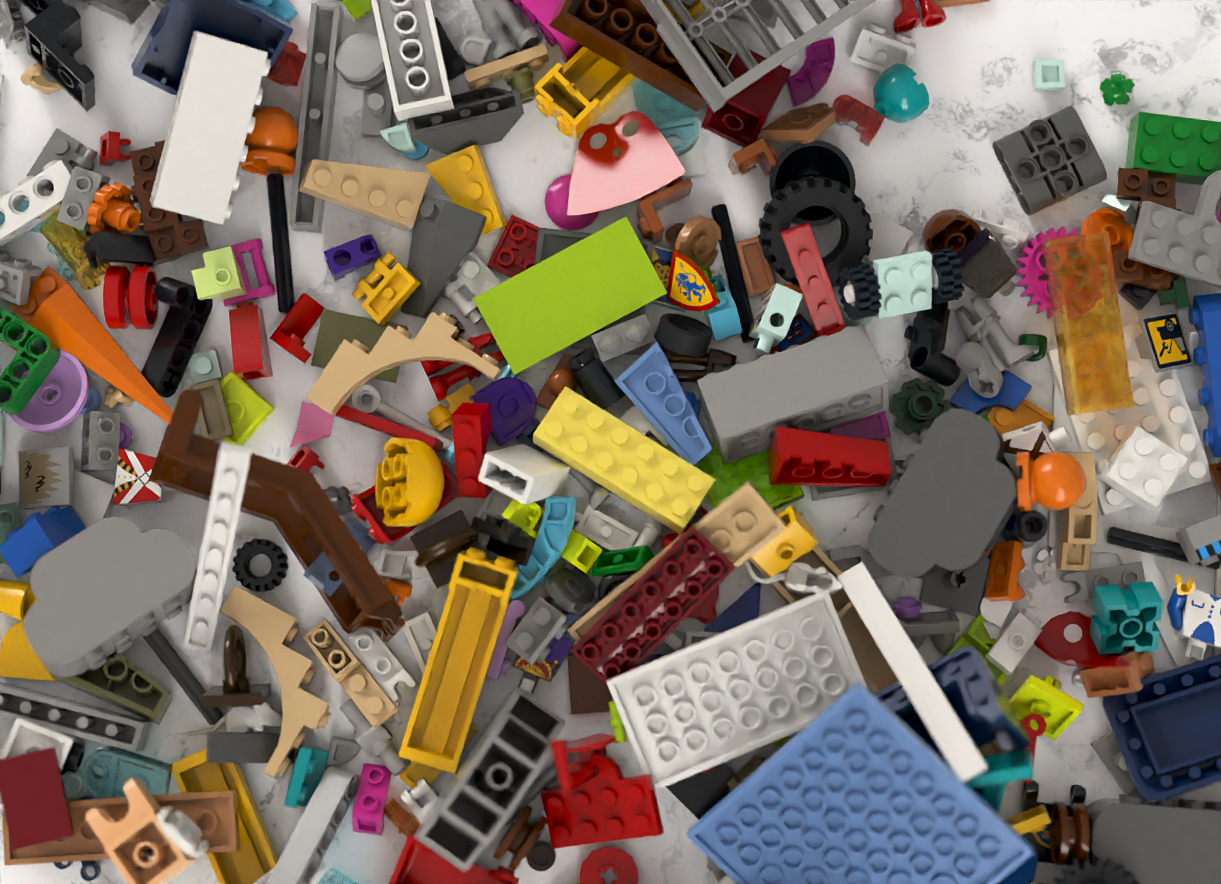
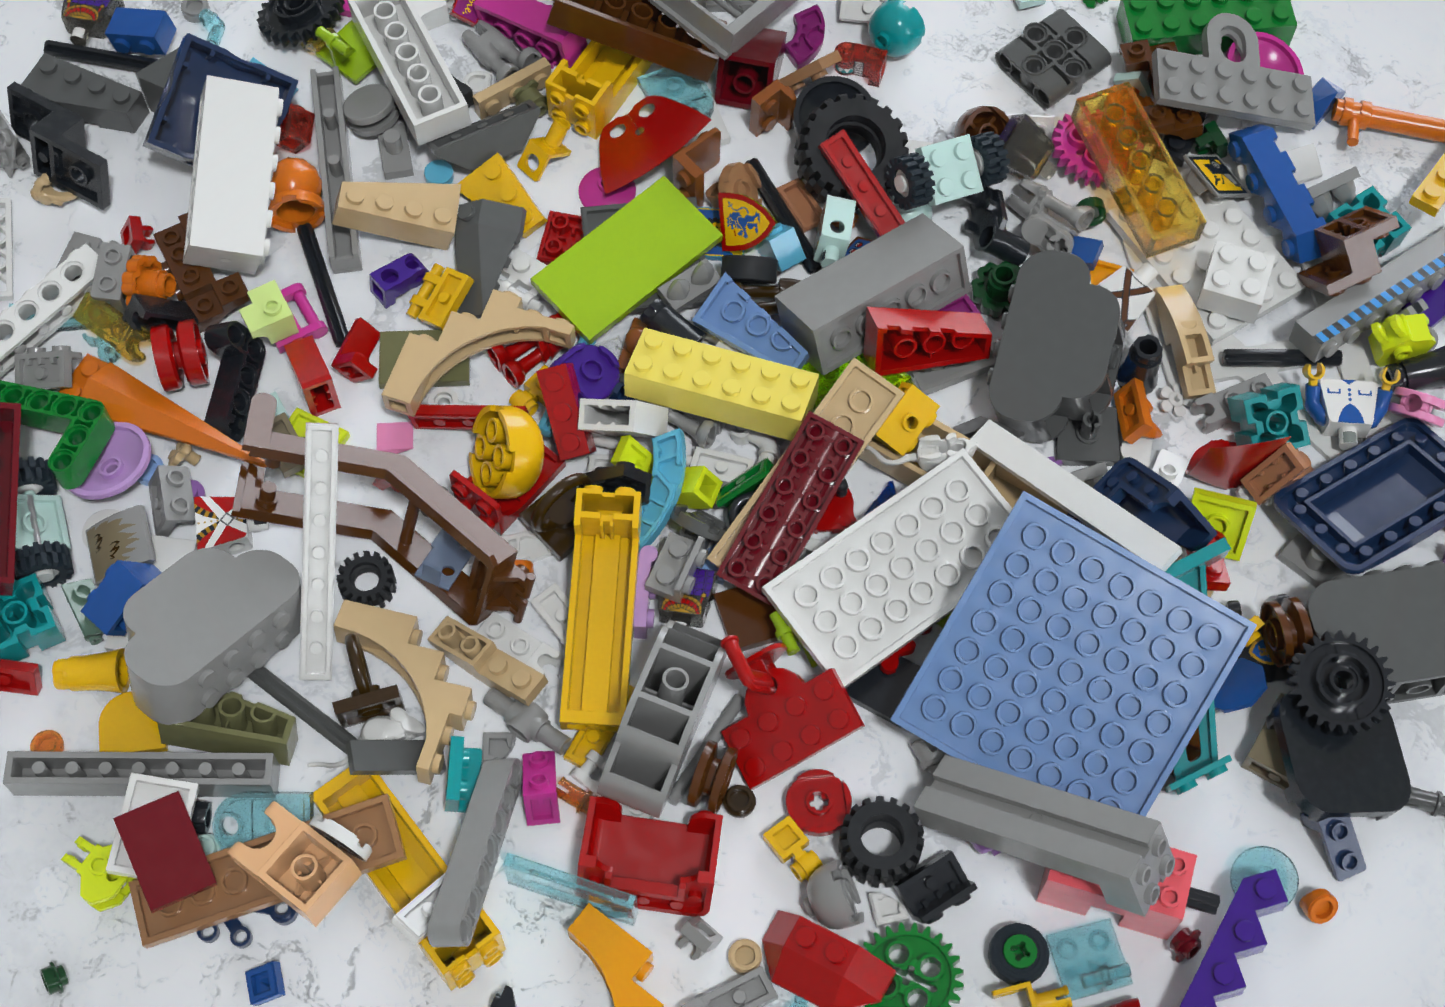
camera: 15 degrees left, 20 degrees down
(399, 138) = (422, 167): light aqua tile -> none
(523, 146) = (545, 148): none -> yellow bracket
(1051, 481) = (1151, 302): orange tile -> none

